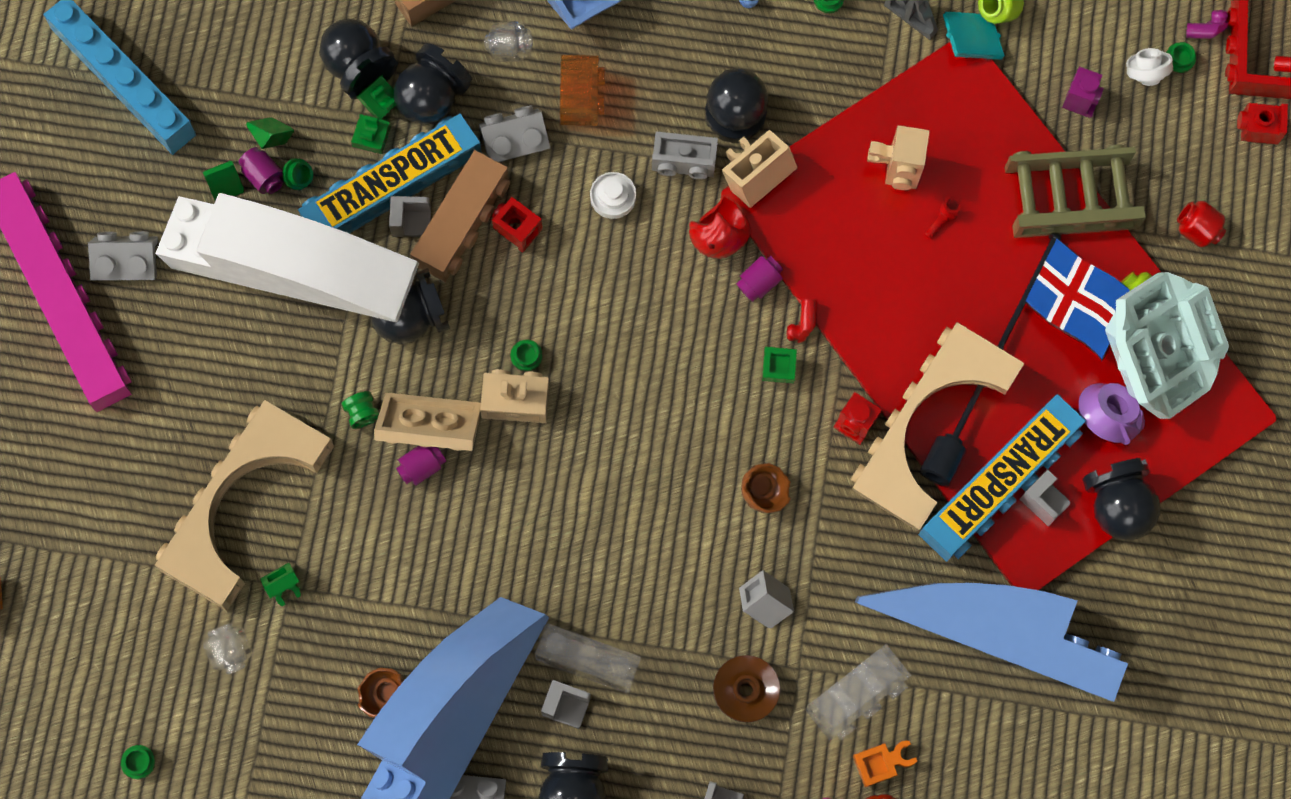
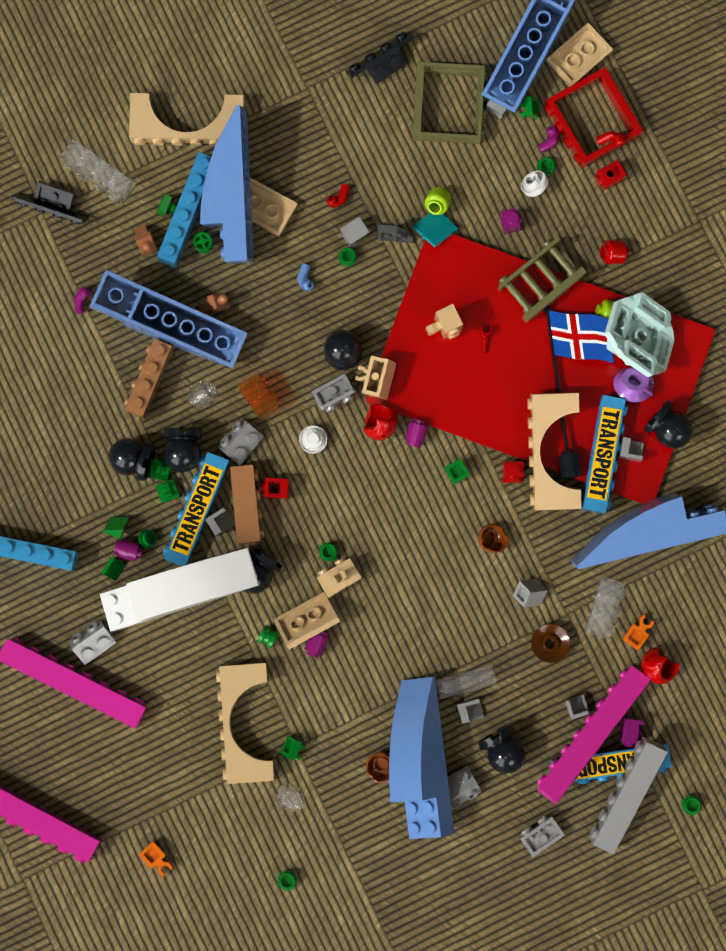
camera: 30 degrees left, 10 degrees up
(807, 322) = (455, 440): red arm -> none

